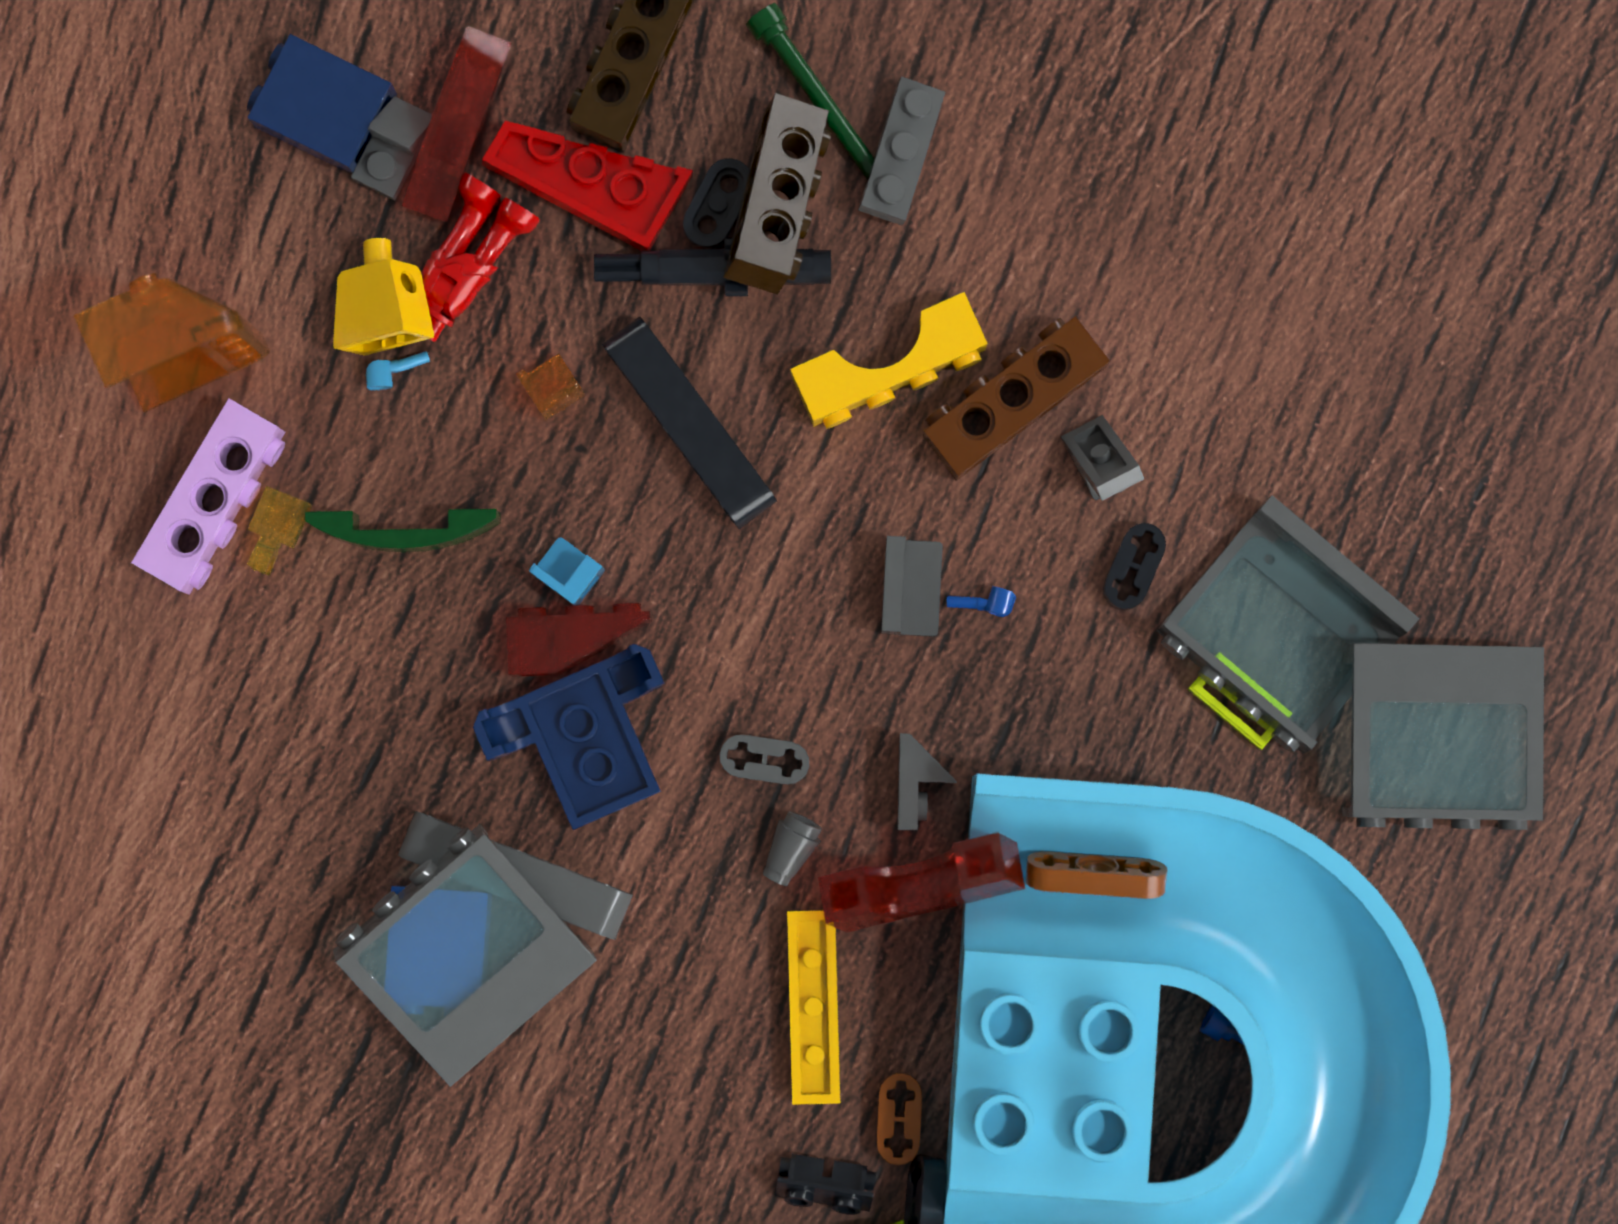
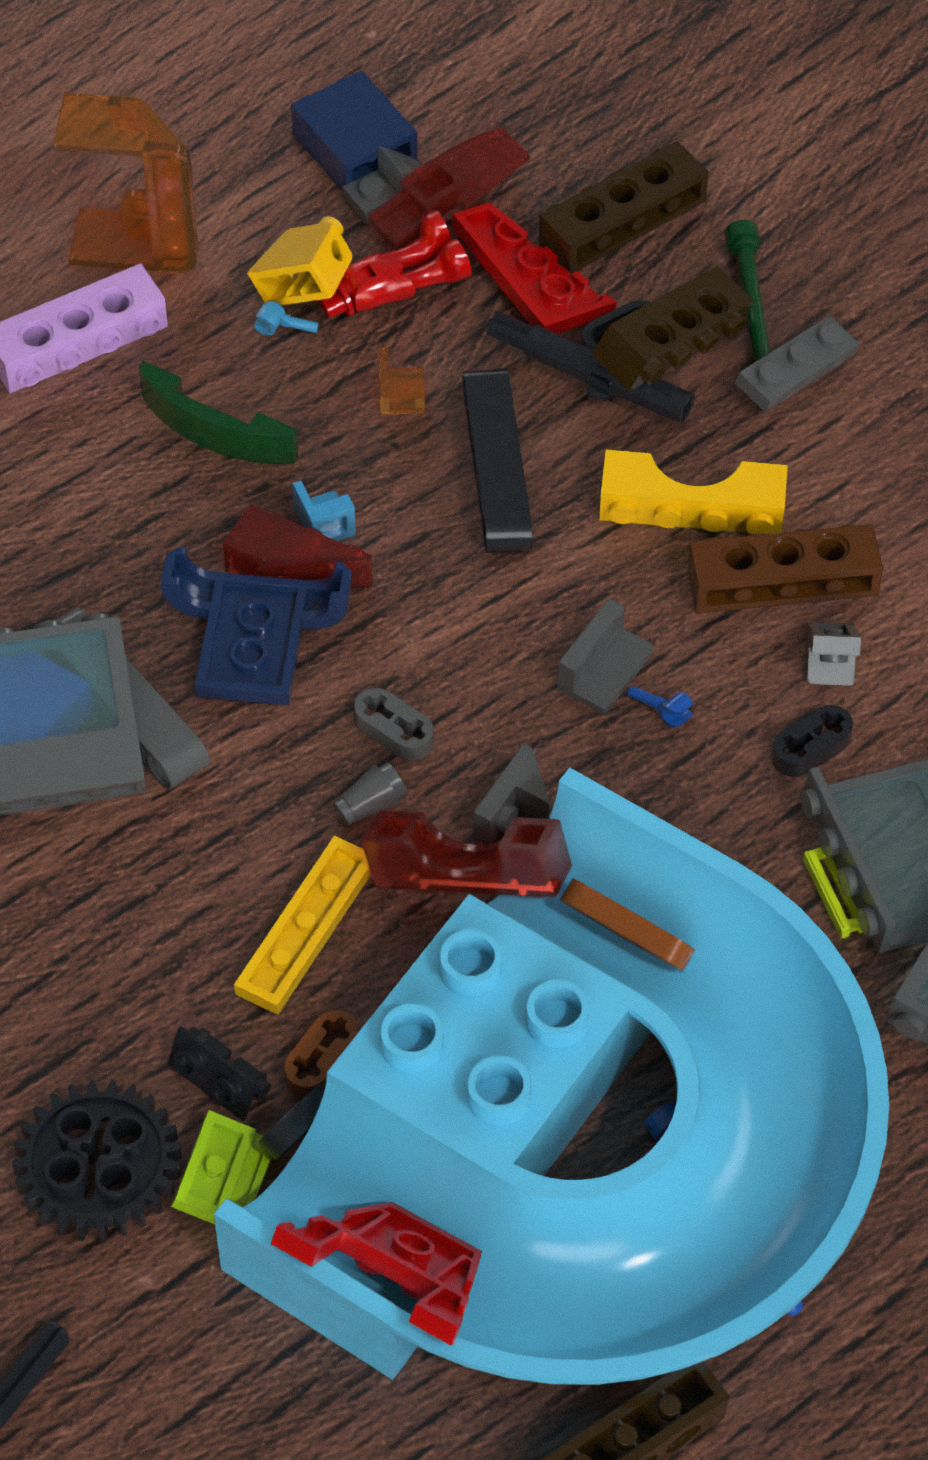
camera: 25 degrees right, 30 degrees down
(277, 522) = (109, 370): clear yellow plate -> none

